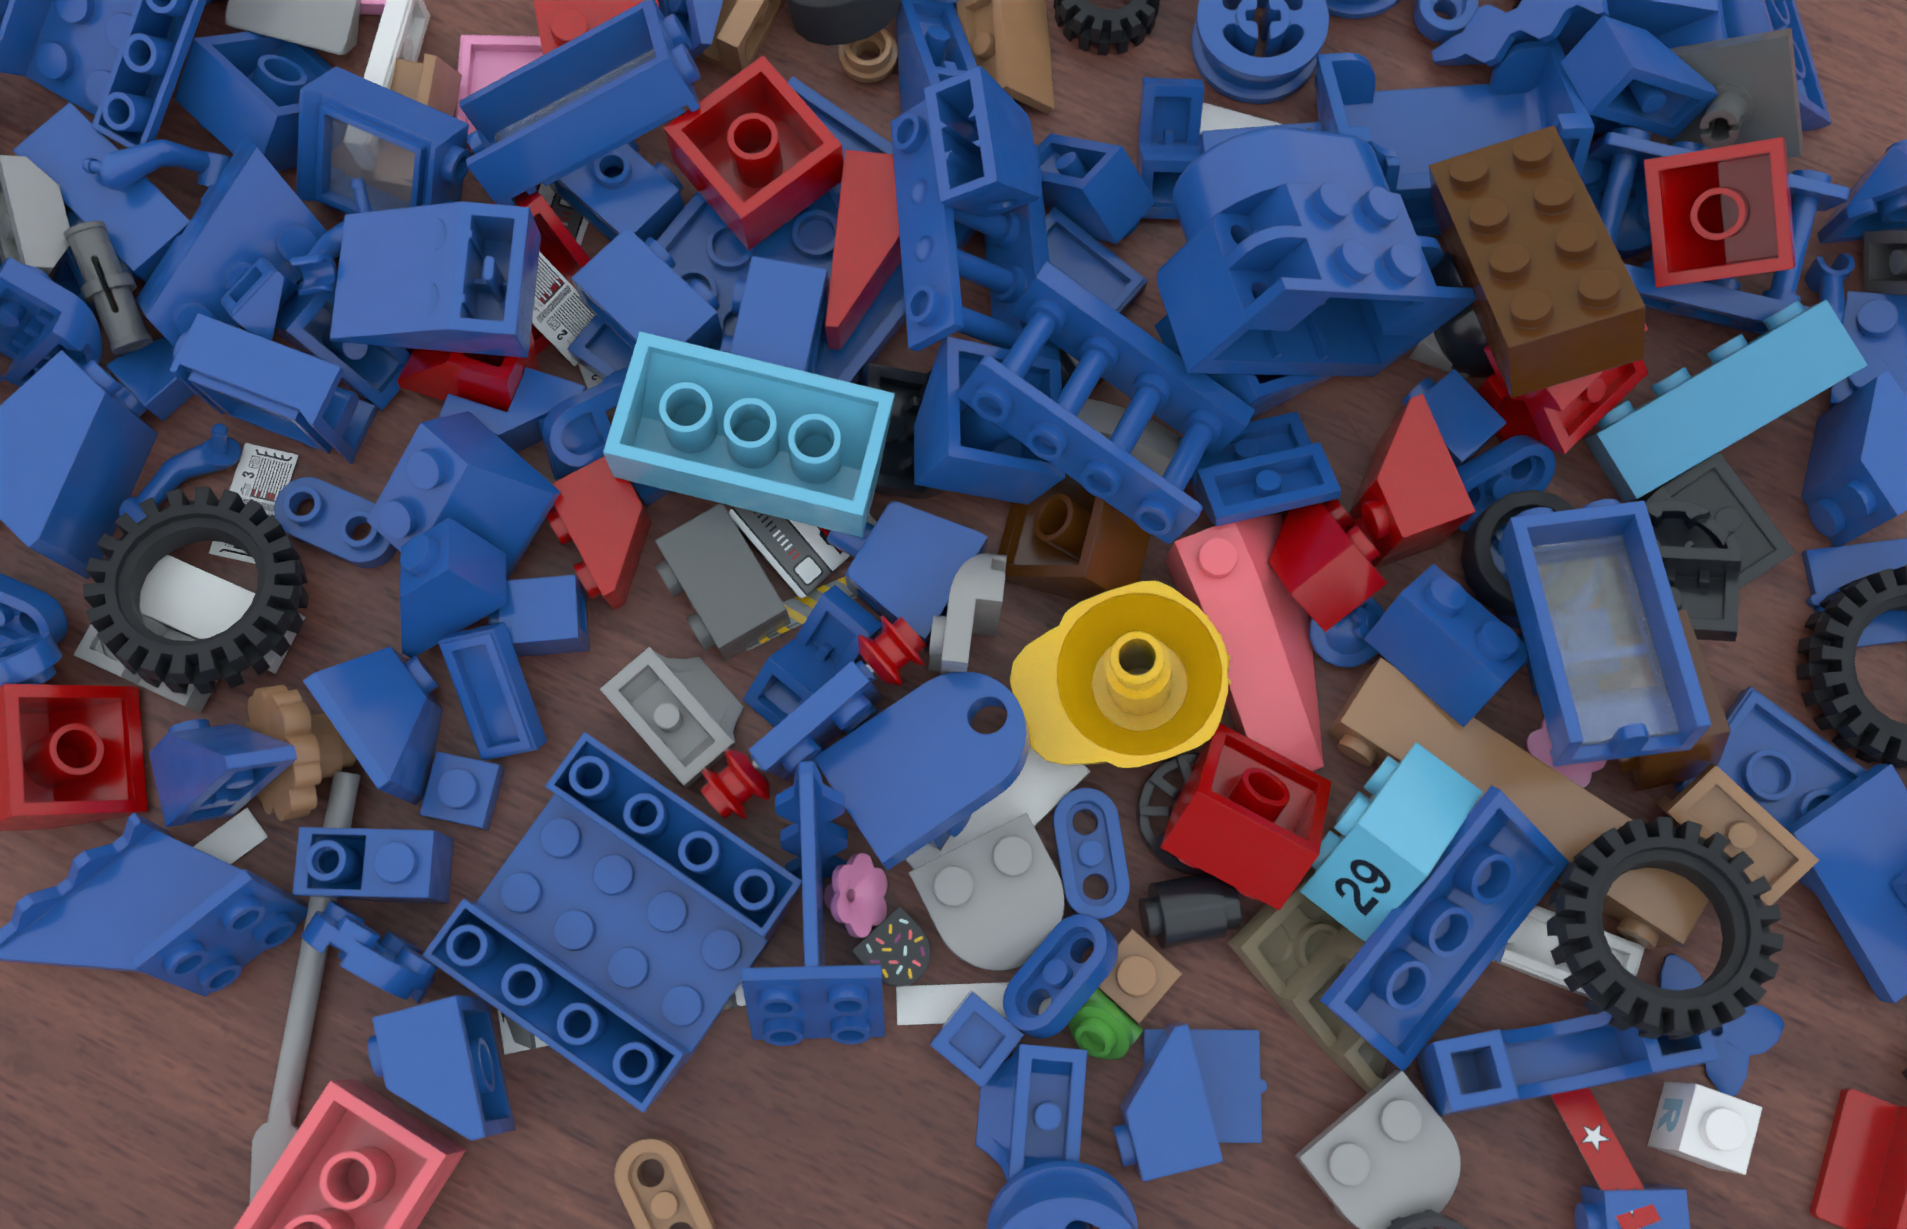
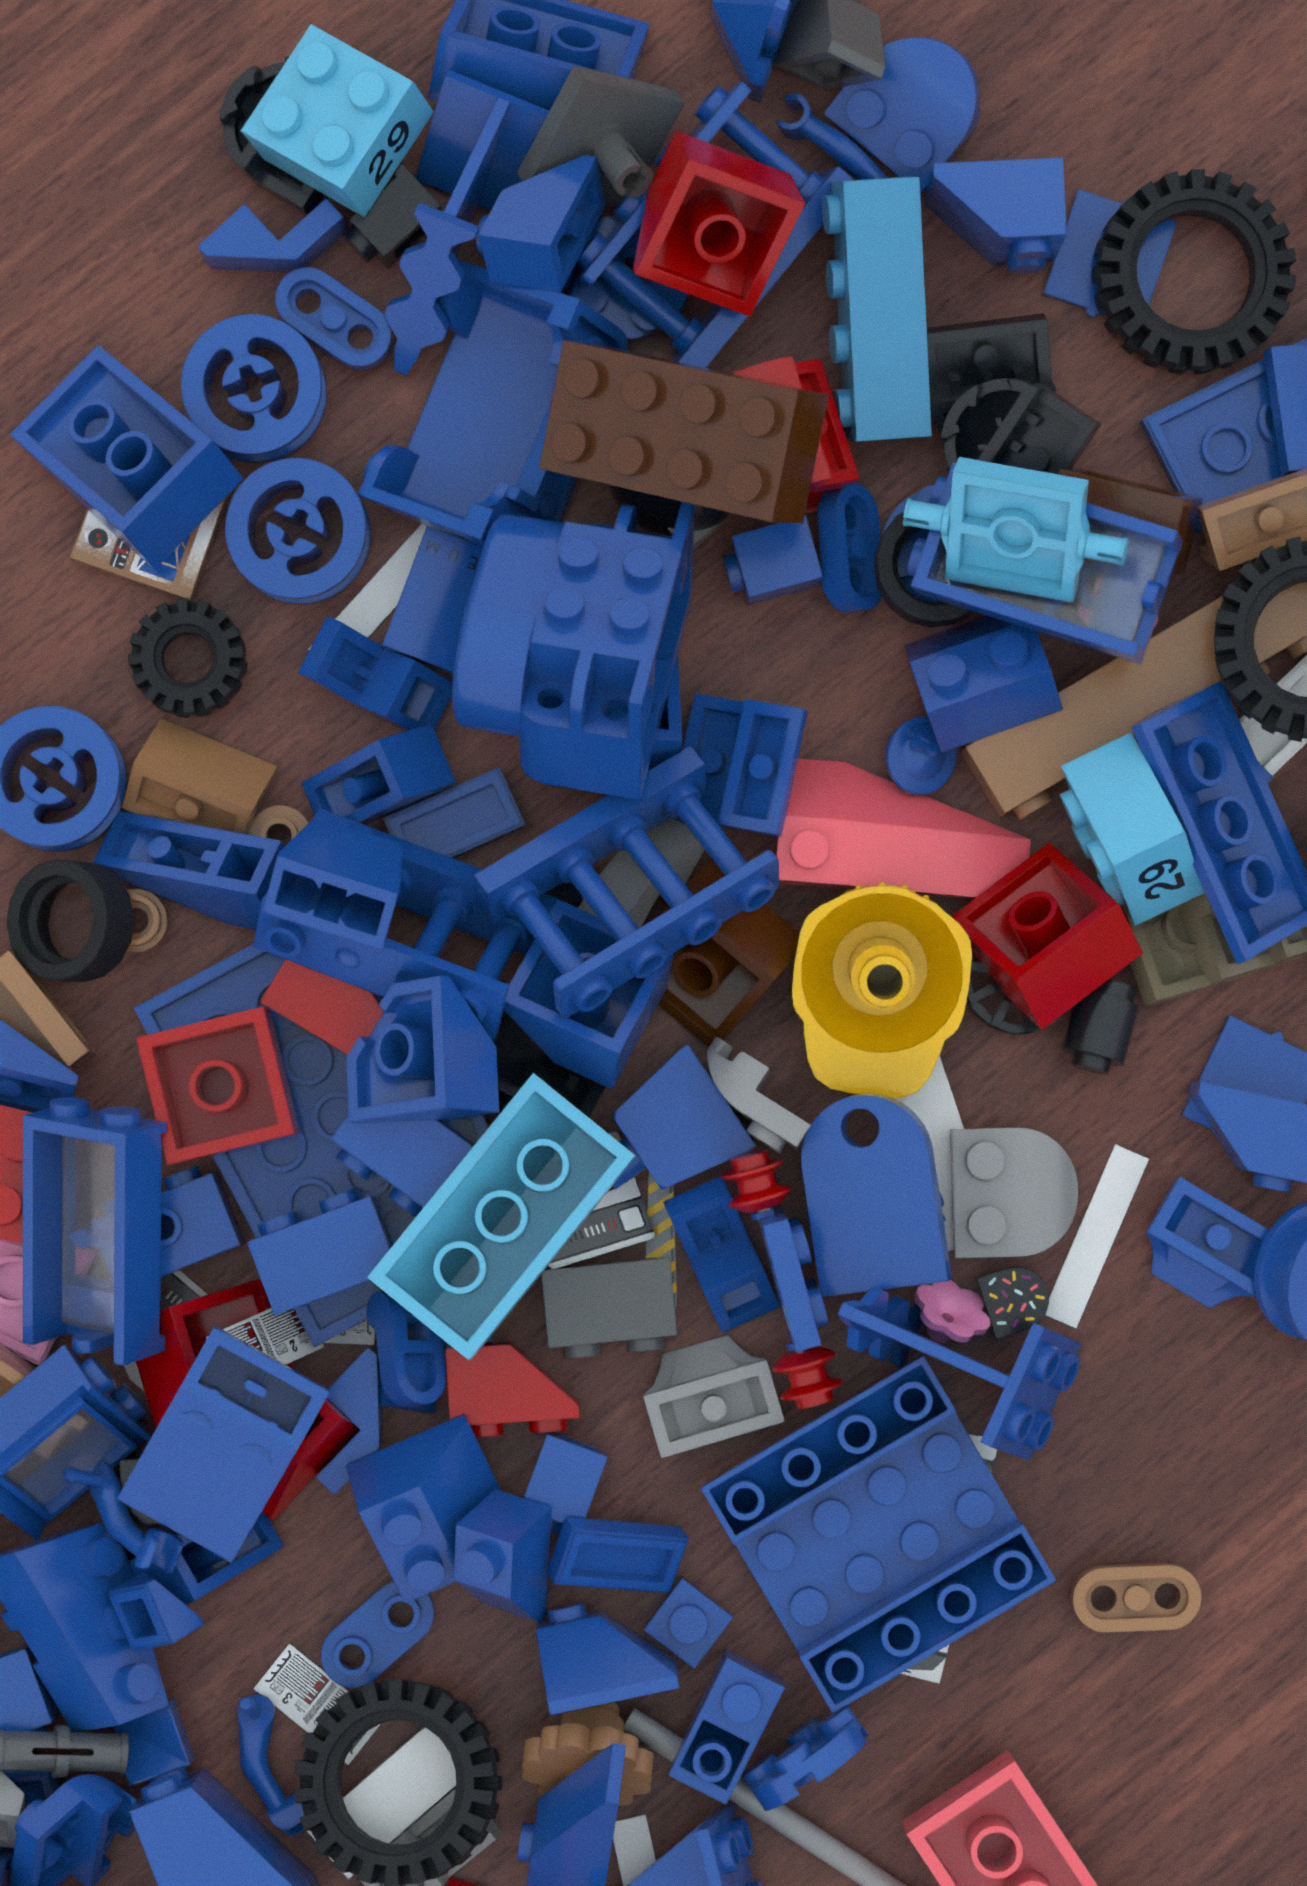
camera: 65 degrees left, 10 degrees up
(271, 386) = (234, 1637): blue window -> none
(445, 1064) = (935, 1732): blue slope -> none
(861, 294) = (423, 1058): none -> blue slope
(976, 1038) = (1123, 1265): blue plate -> none
(1058, 973) = (1102, 1166): blue plate -> none
(1091, 854) = (1010, 1088): blue plate -> none
(1103, 1028) = (1163, 1150): bright green plate -> none
(1138, 977) = (1133, 1101): medium nougat plate -> none
(1325, 561) = (857, 752): red slope -> none
(1410, 489) = (825, 645): red slope -> none
(1622, 580) = (1016, 529): none -> medium azure plate

